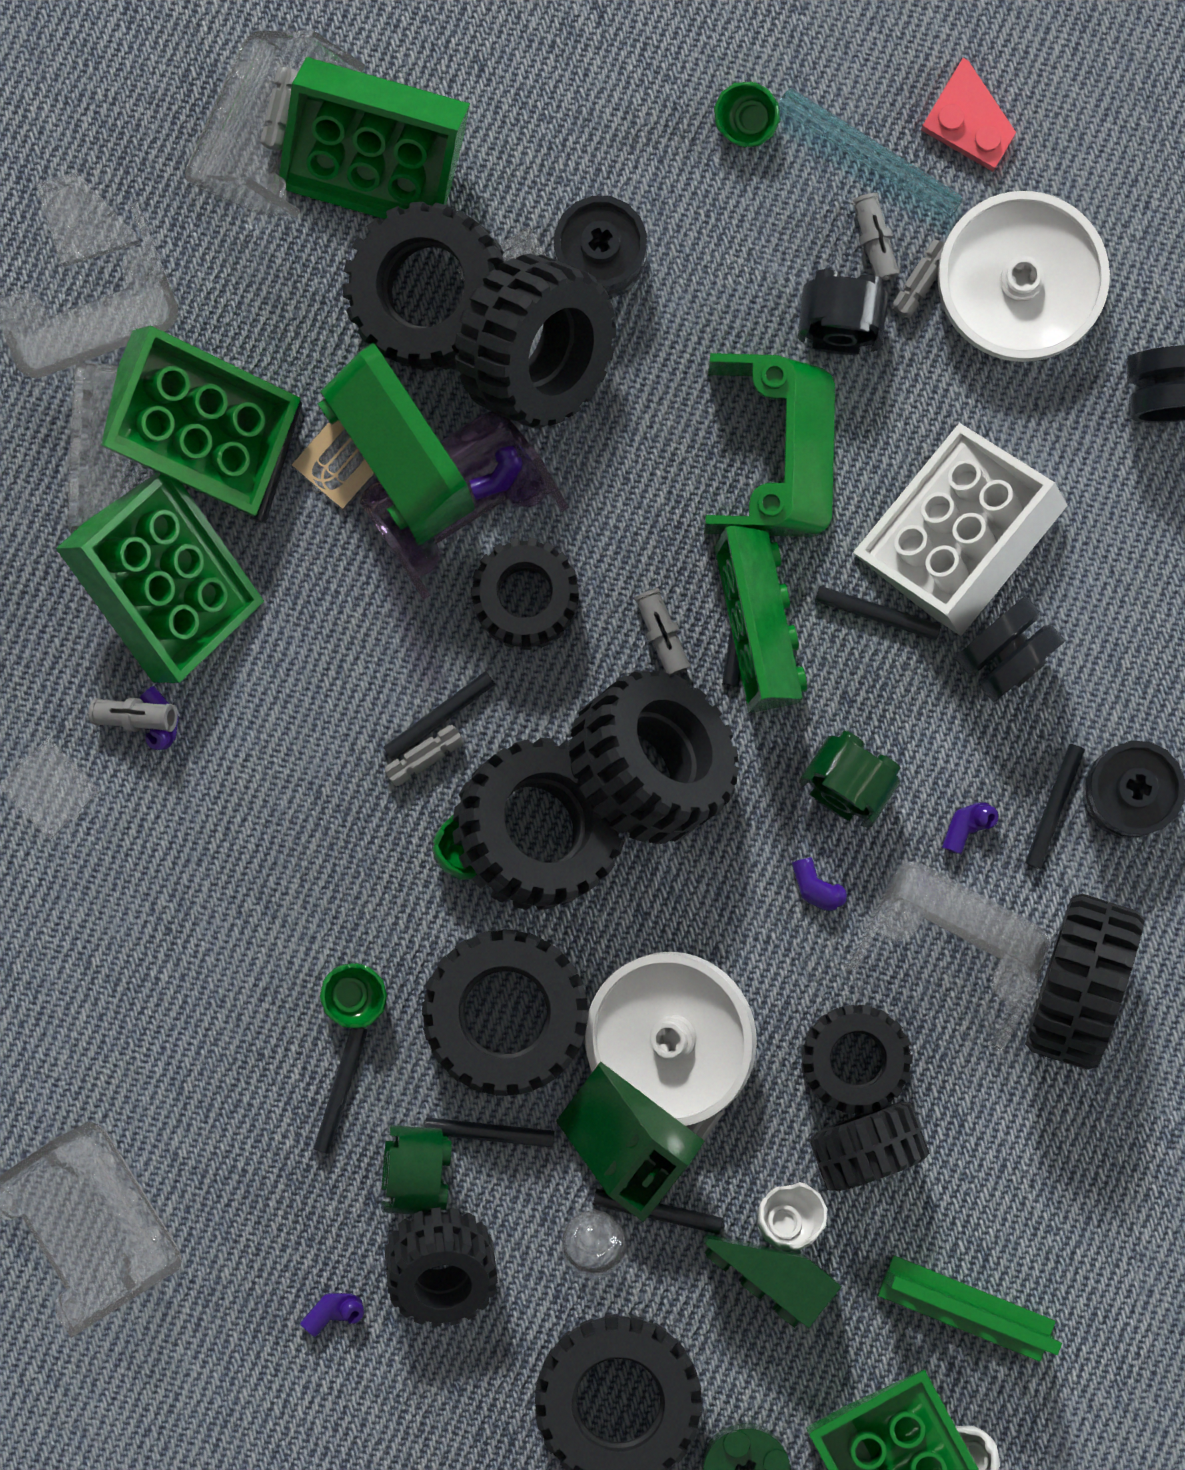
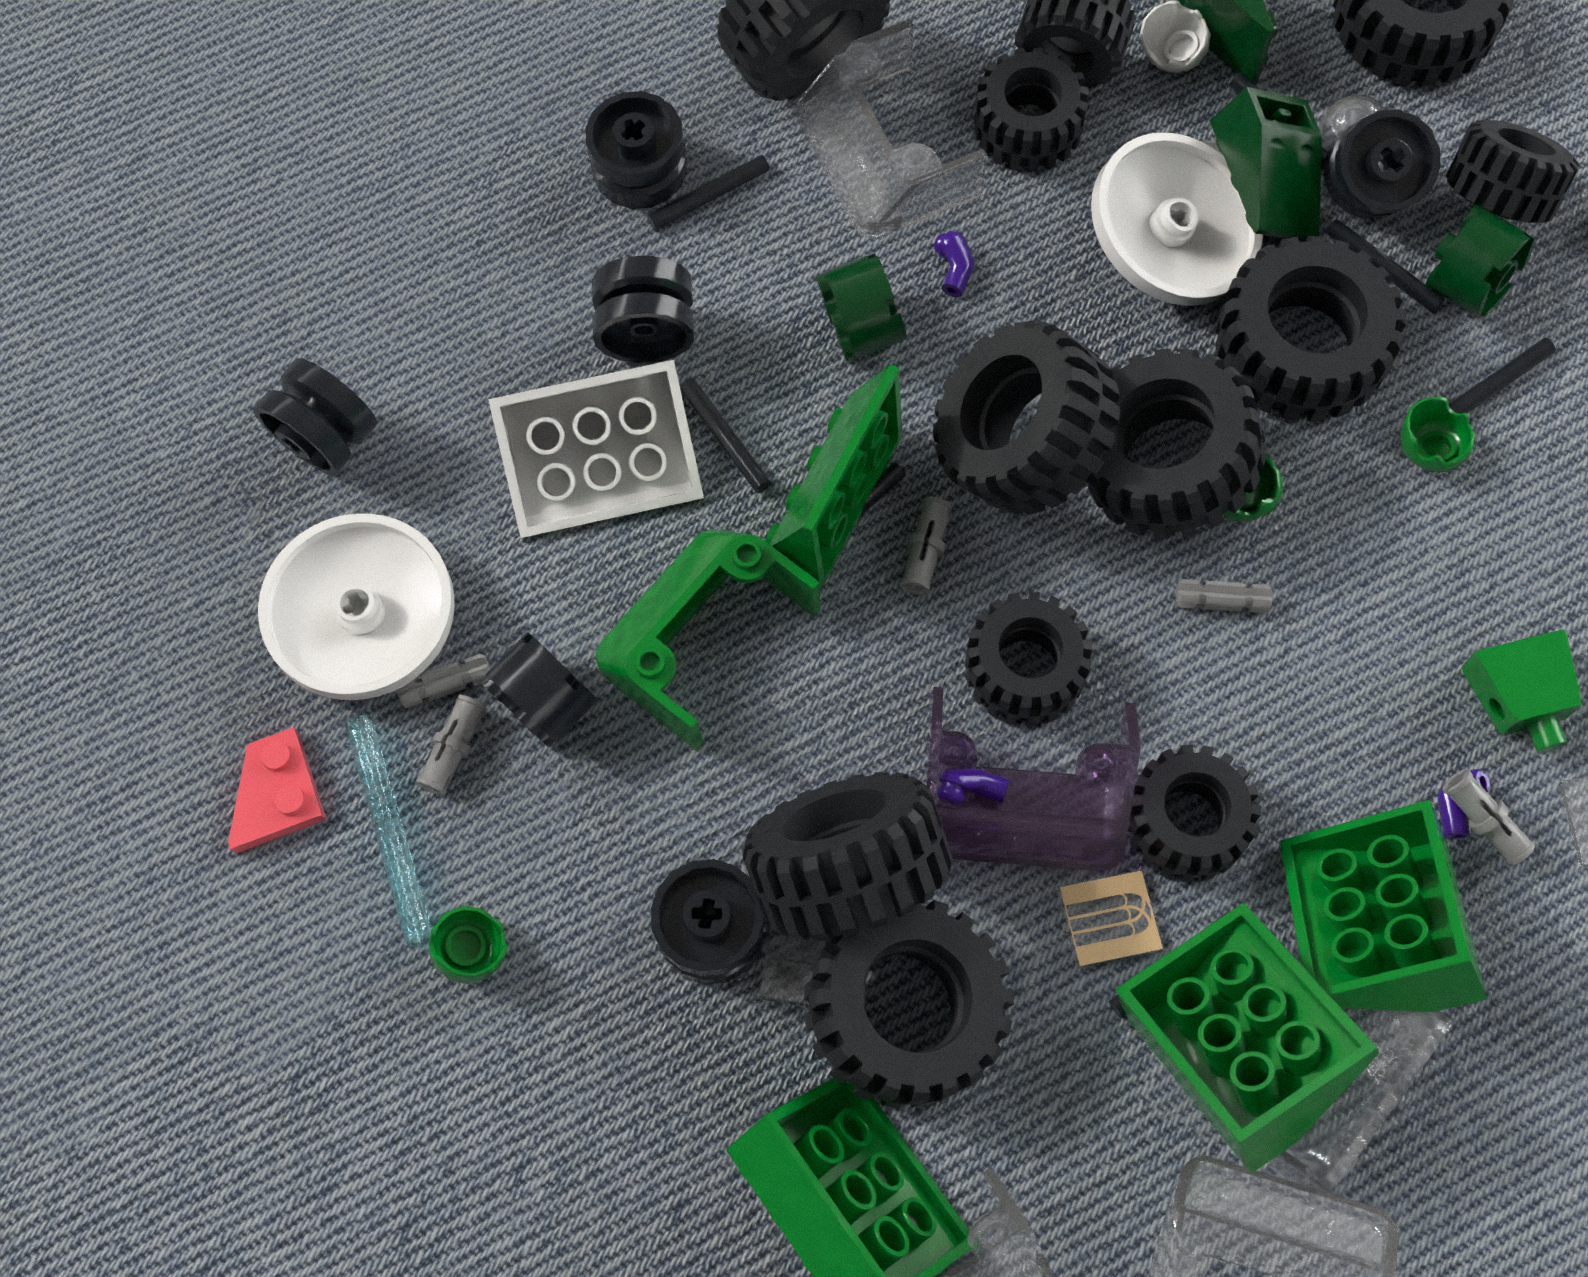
camera: 140 degrees left, 15 degrees down
(164, 839) = (1527, 687): none -> green torso
(325, 529) = (1215, 782): none -> black tyre
(397, 445) = (1059, 866): green windscreen -> none
(439, 715) = (1184, 621): black bar -> none
(545, 1200) = (1408, 159): none -> black wheel
(967, 821) = (790, 228): dark purple arm -> none

